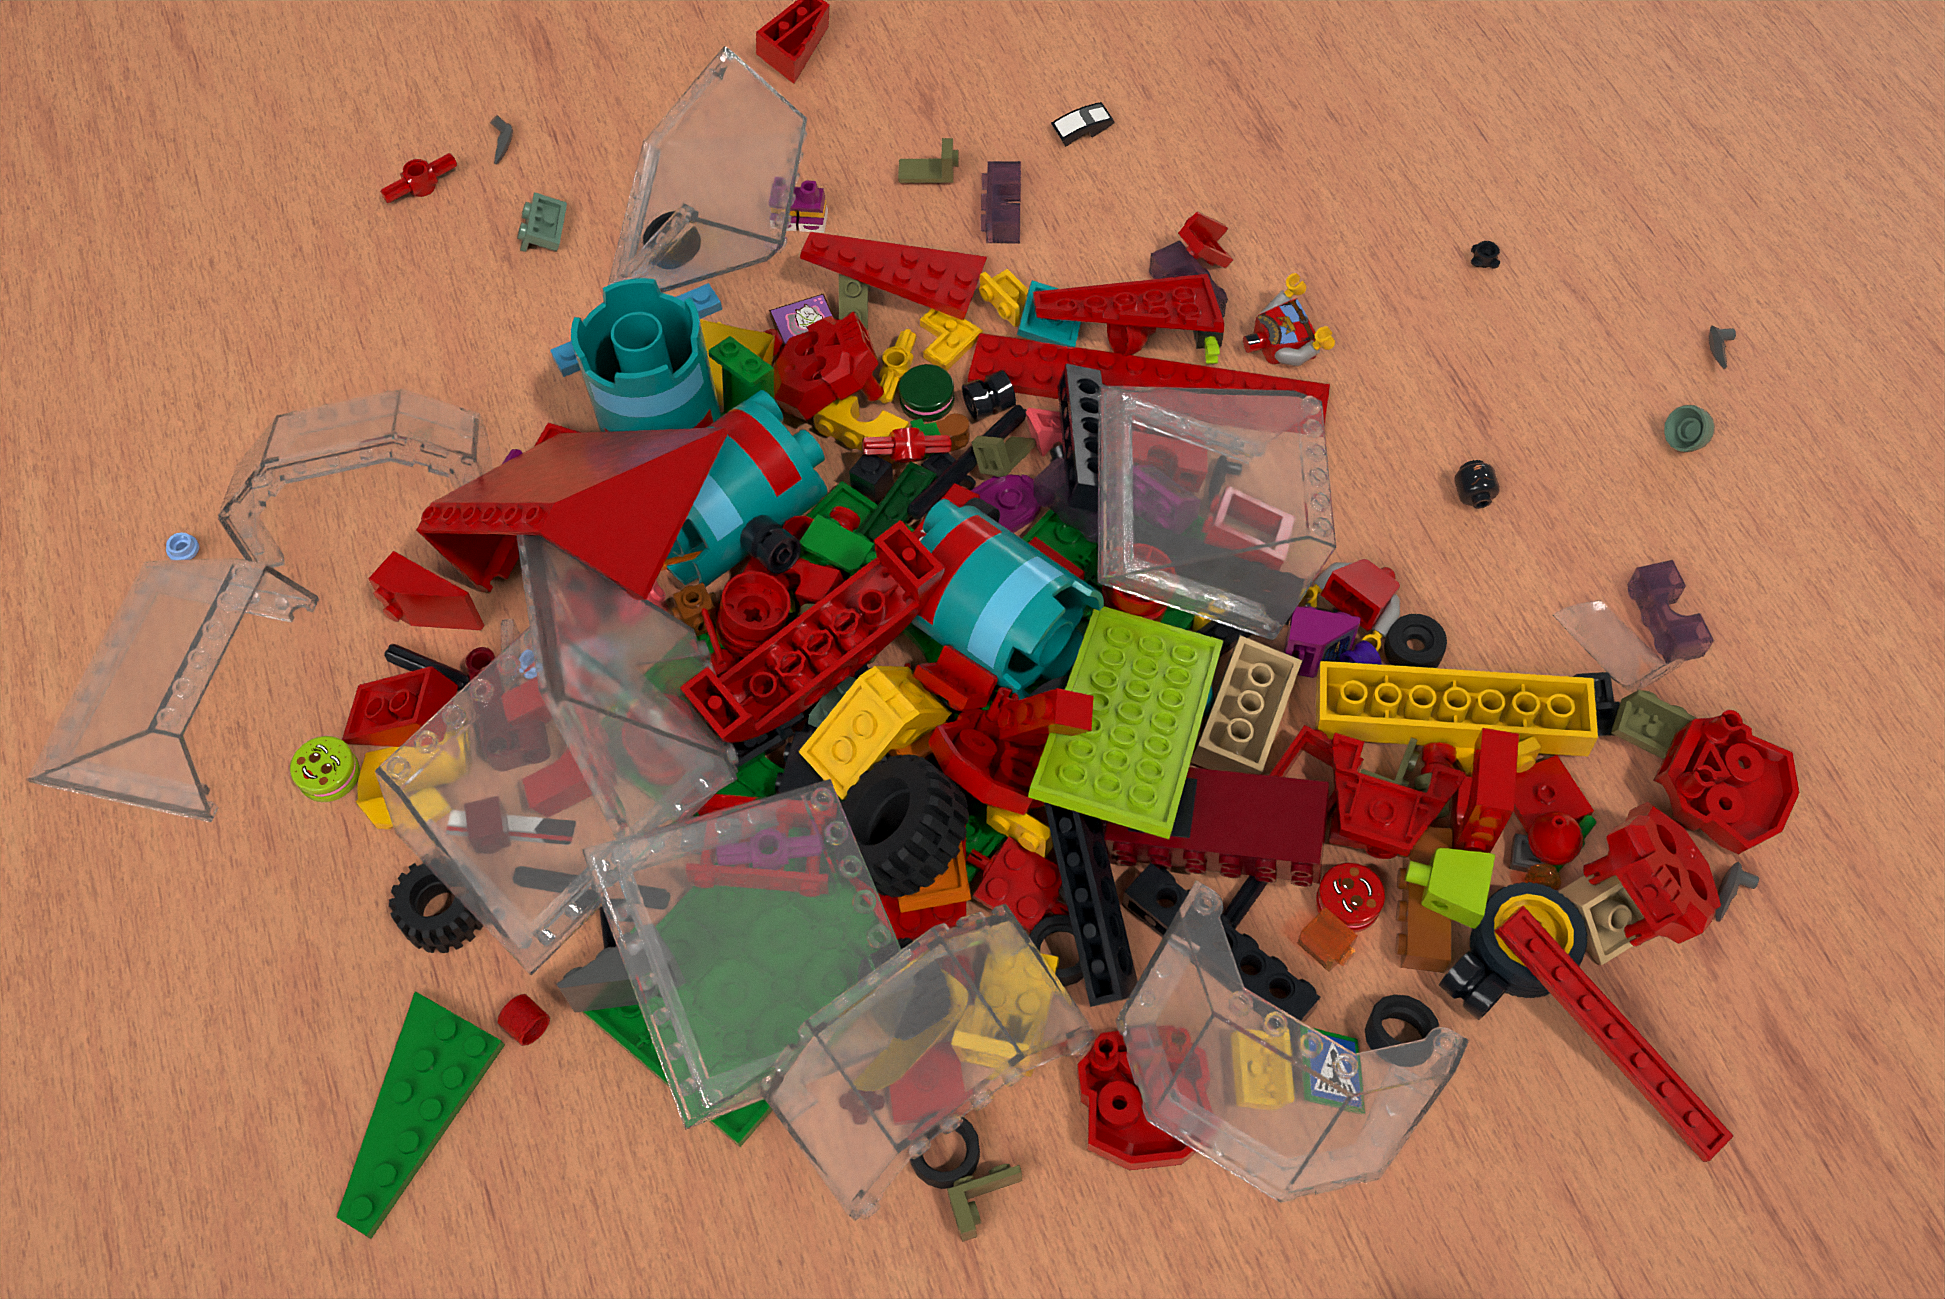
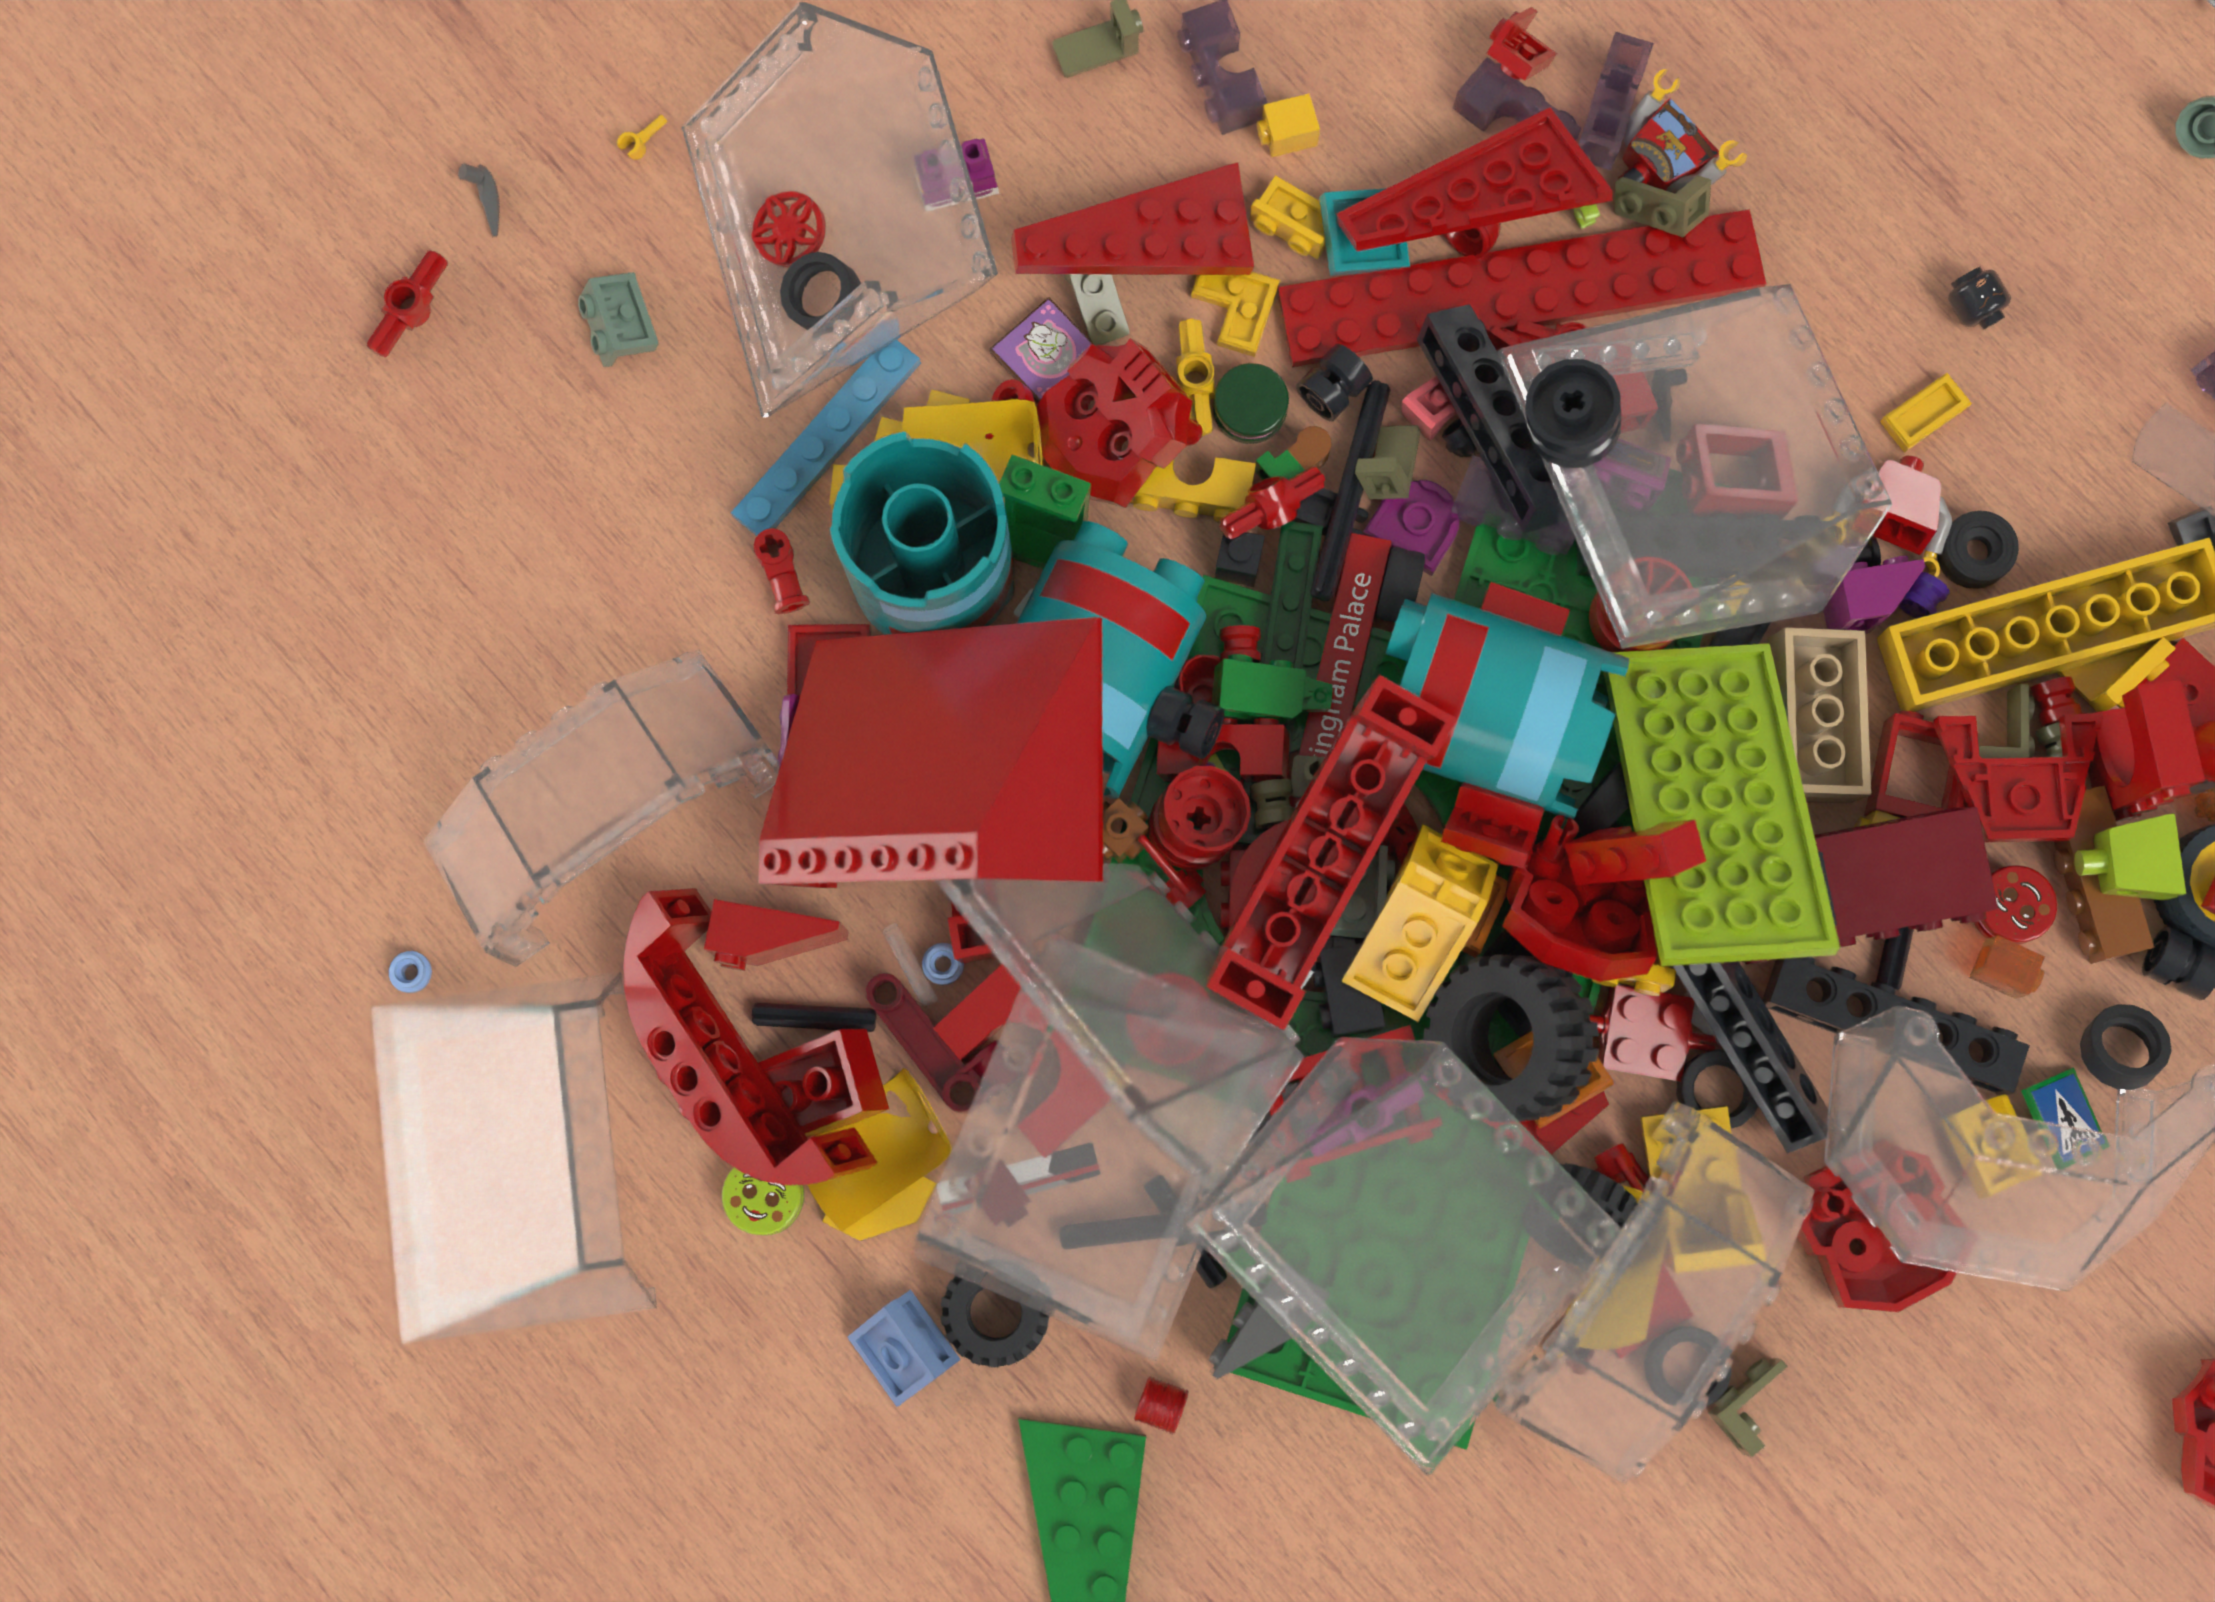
camera: 20 degrees left, 20 degrees up
(333, 649) = (707, 1060): none -> red slope
(360, 905) = (903, 1347): none -> medium blue bracket
(563, 389) = (780, 571): none -> red connector
(609, 141) = (641, 138): none -> yellow hand
(672, 200) = (788, 227): none -> red wheel
(1030, 245) = (1289, 125): none -> yellow brick
(1126, 424) = (1573, 413): none -> black wheel
(1245, 303) = (1614, 98): none -> arch
(1267, 361) = (1663, 209): none -> olive bracket
(1411, 547) = (1925, 412): none -> yellow tile

